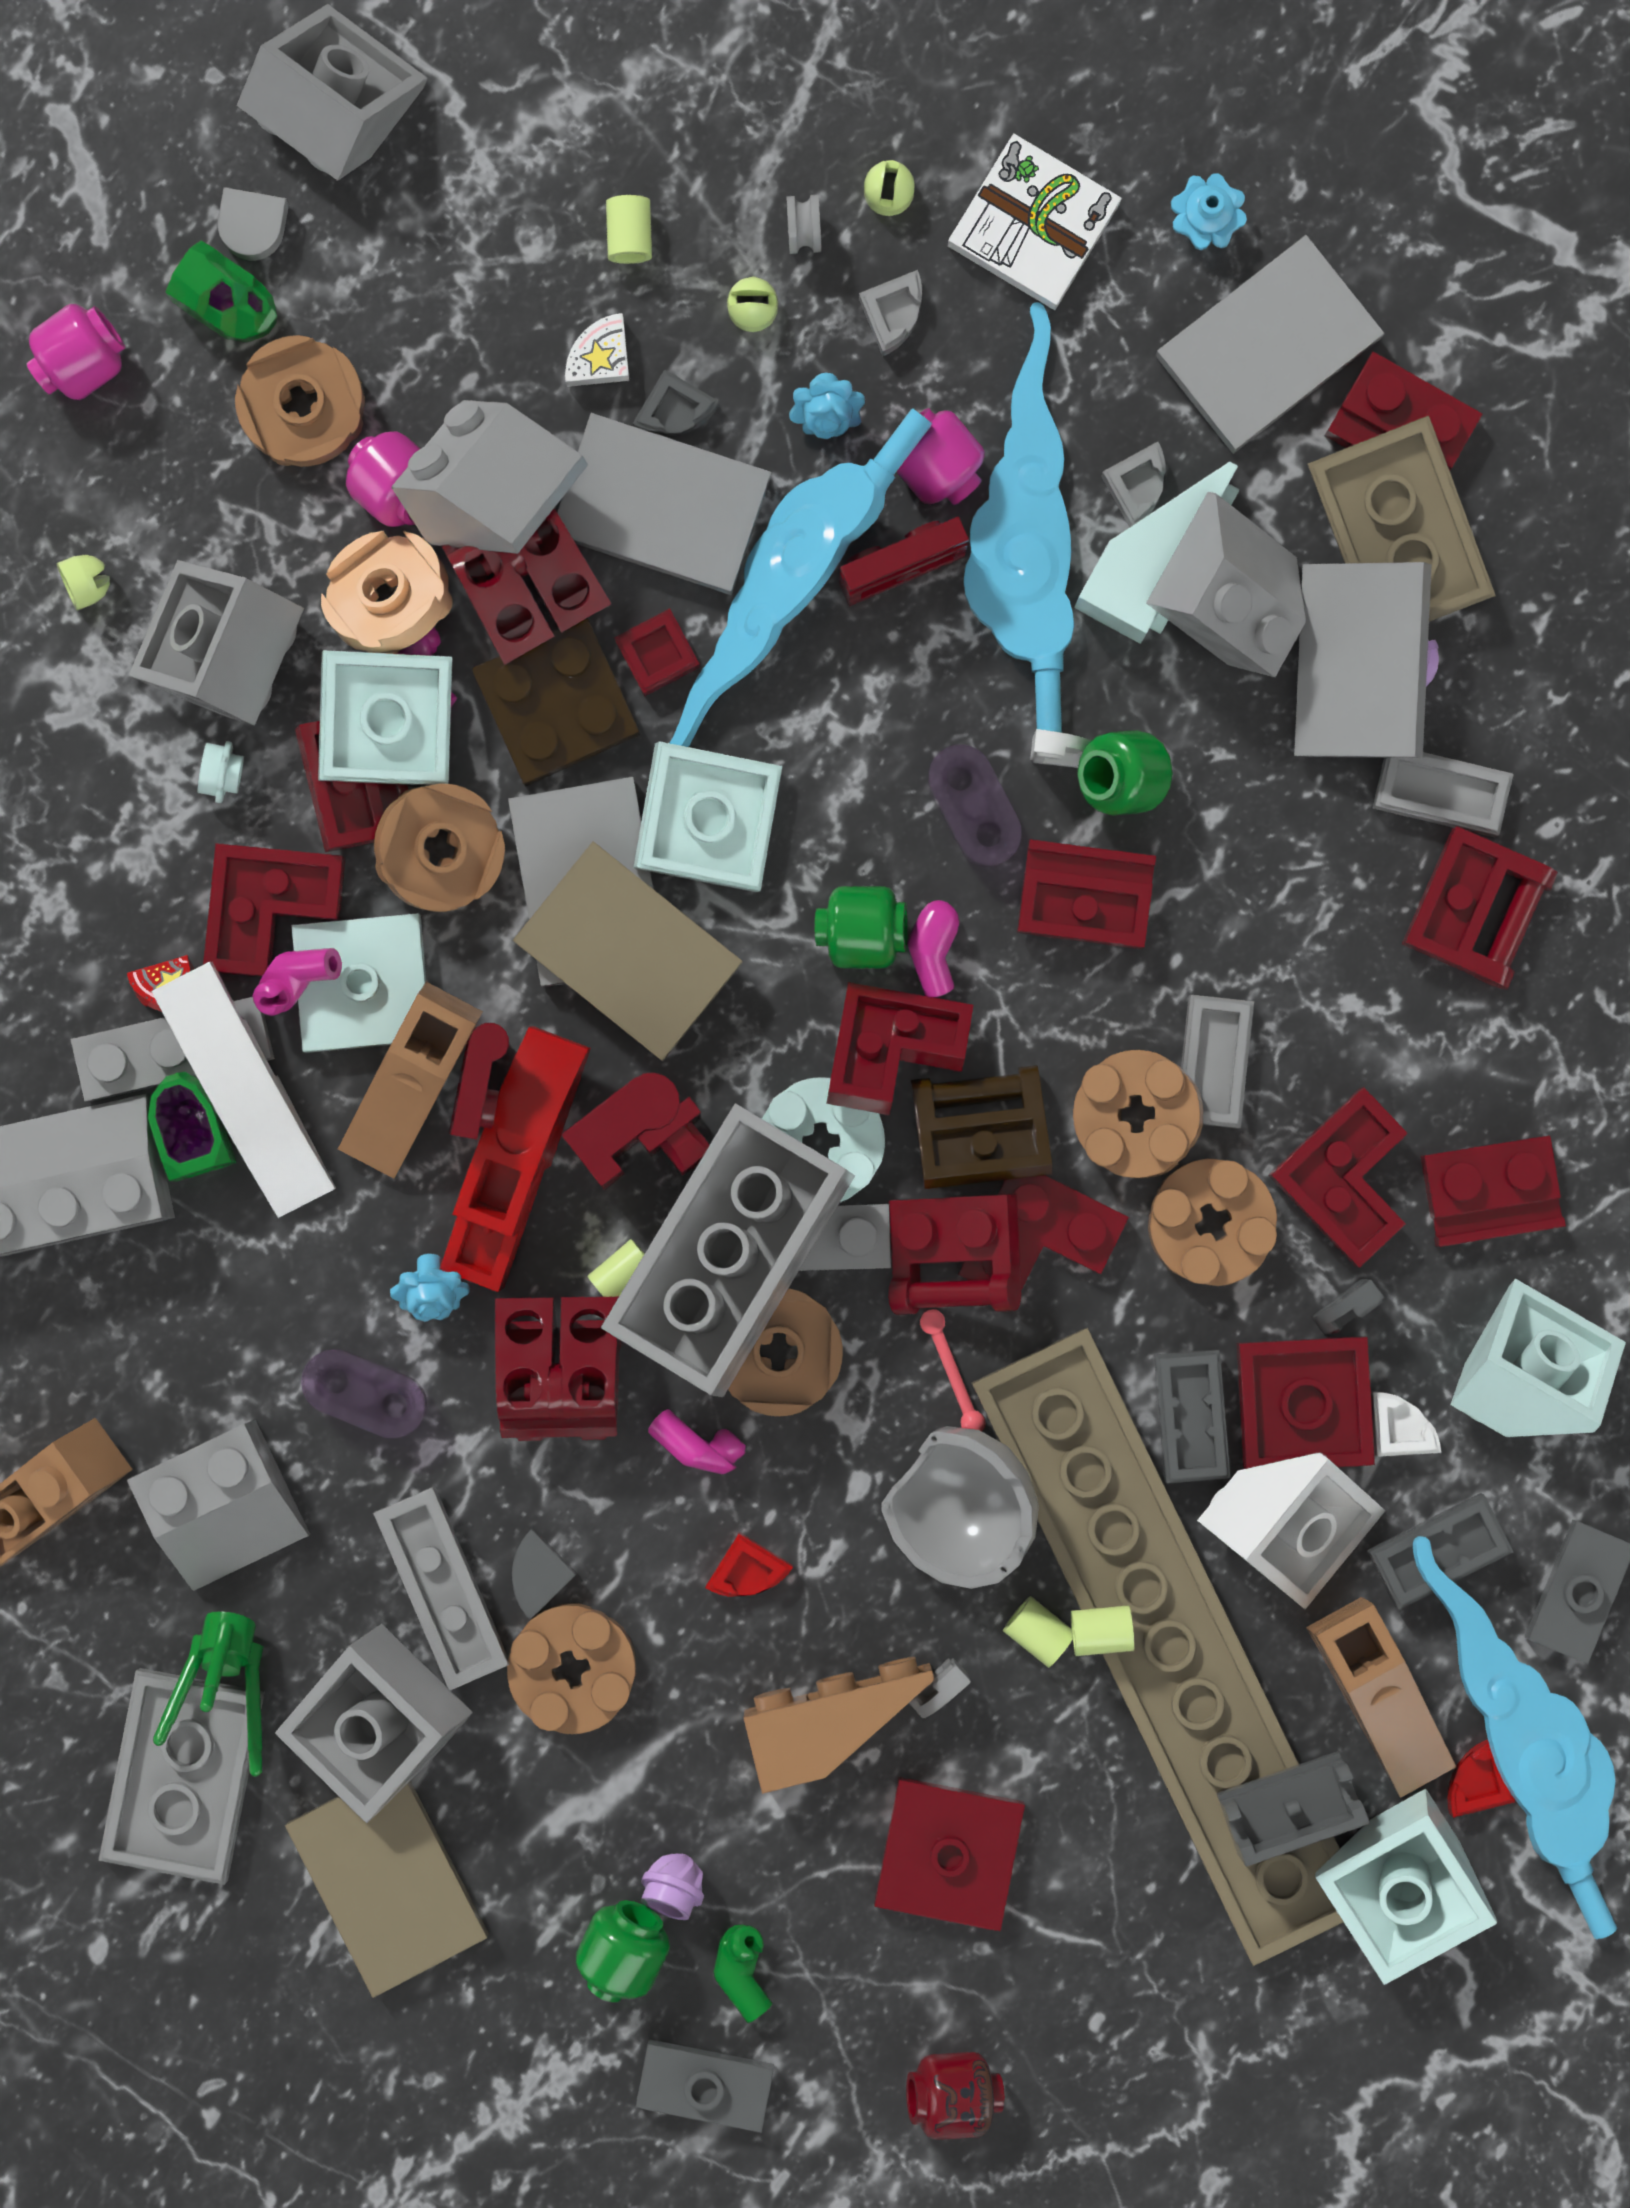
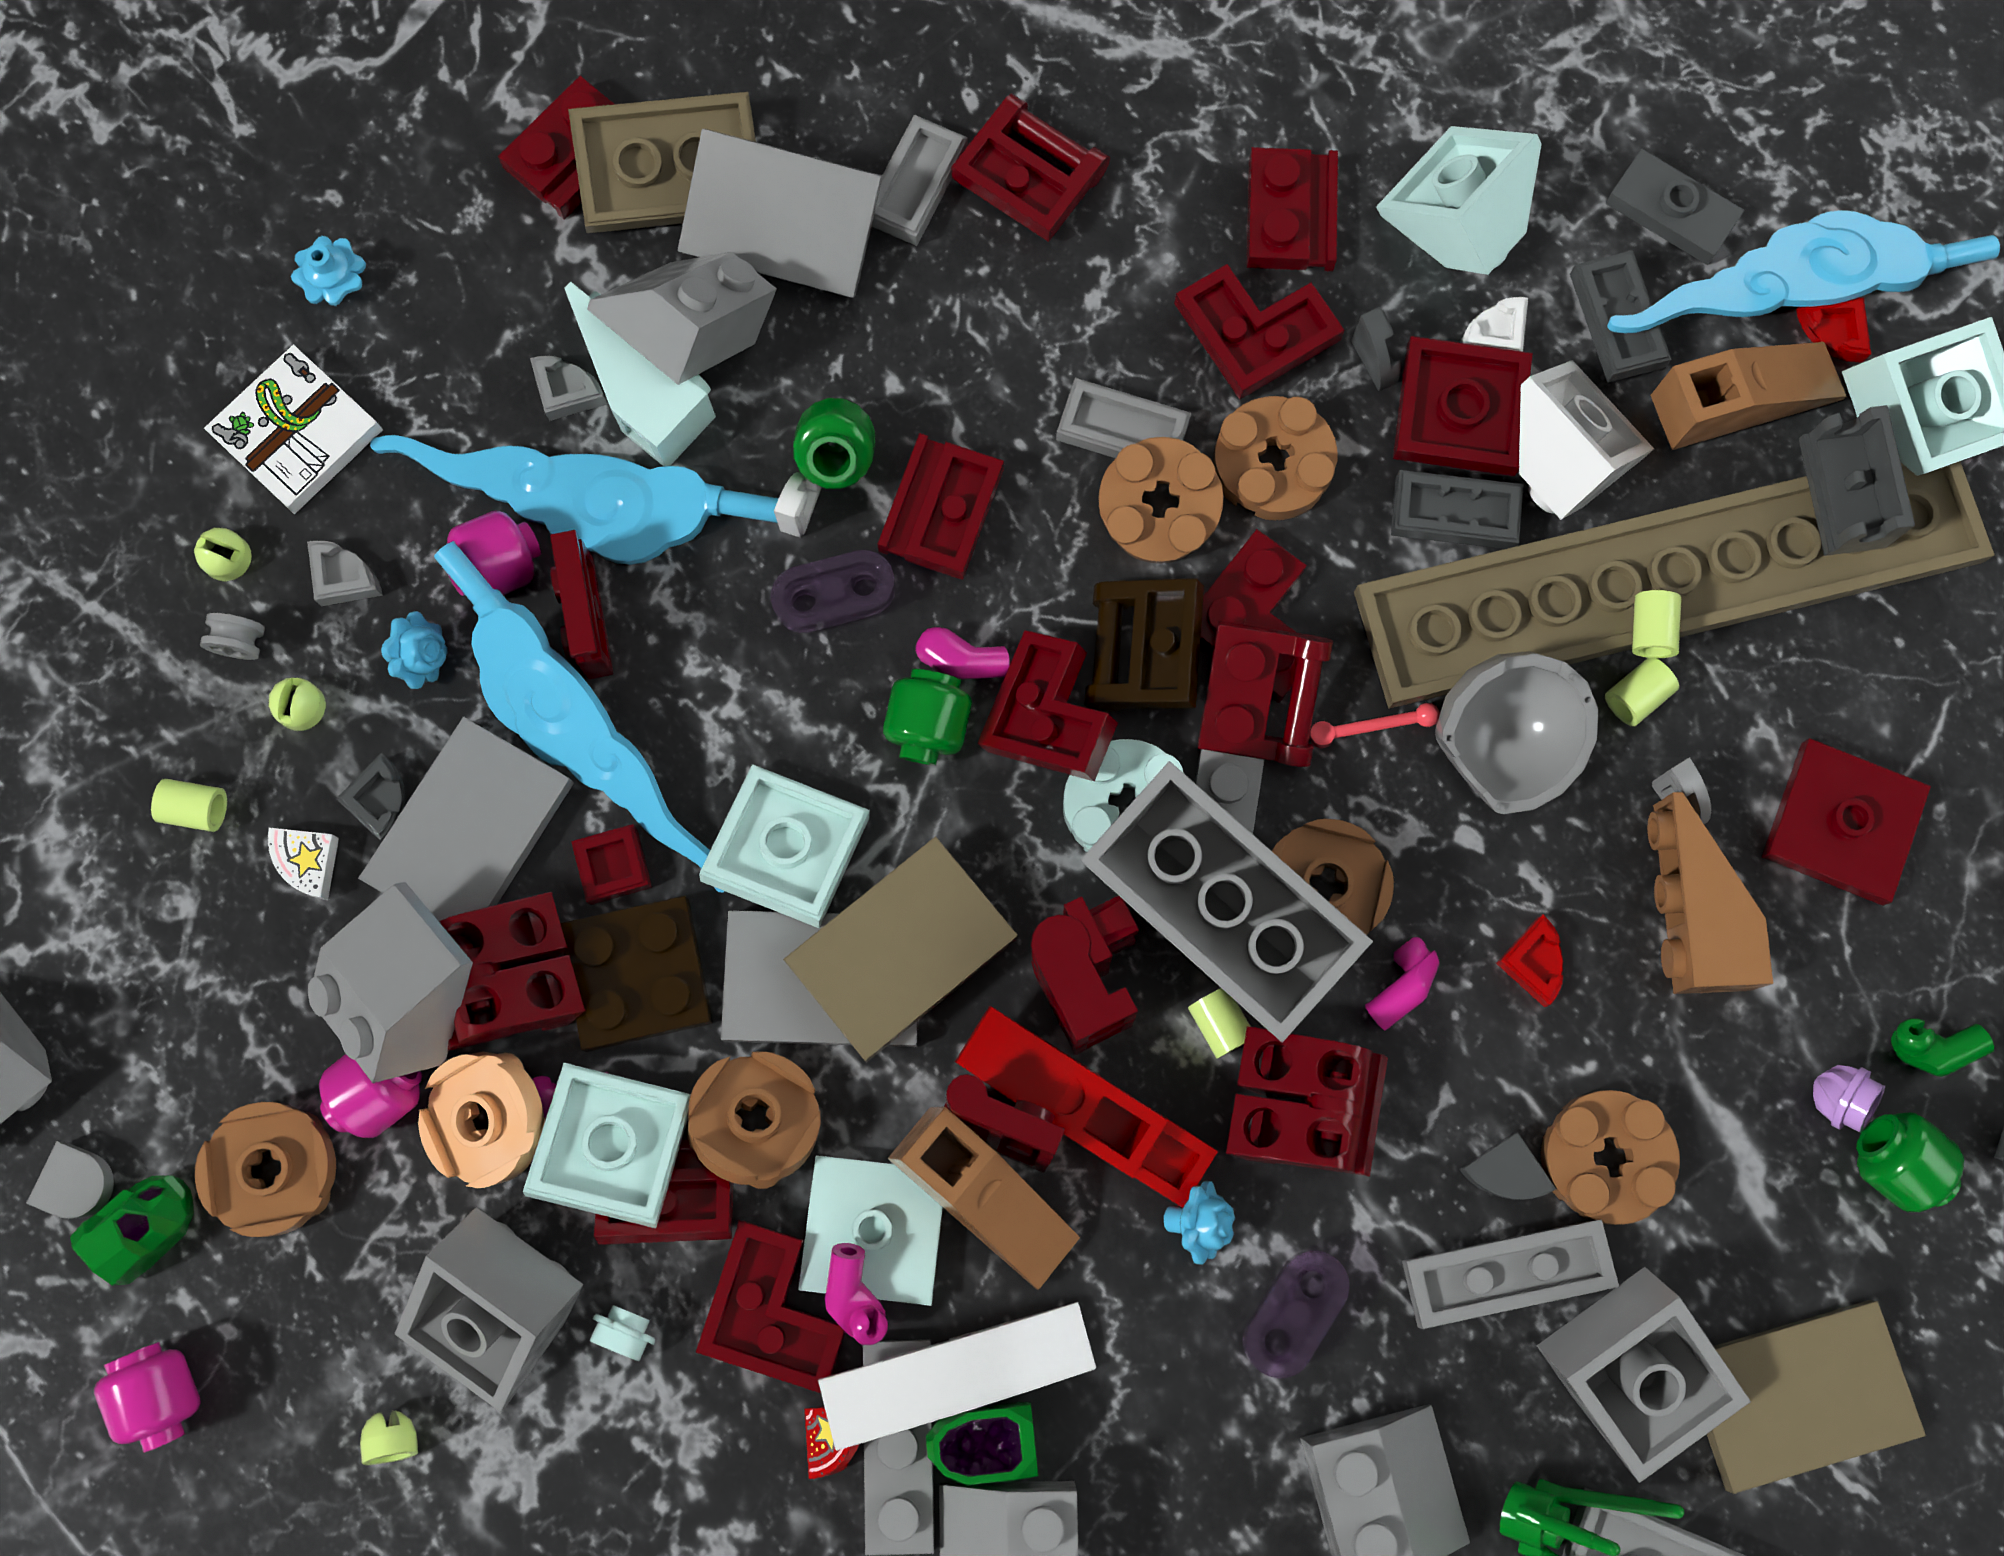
camera: 75 degrees left, 10 degrees down
(1269, 344) = (466, 246): light grey tile -> none

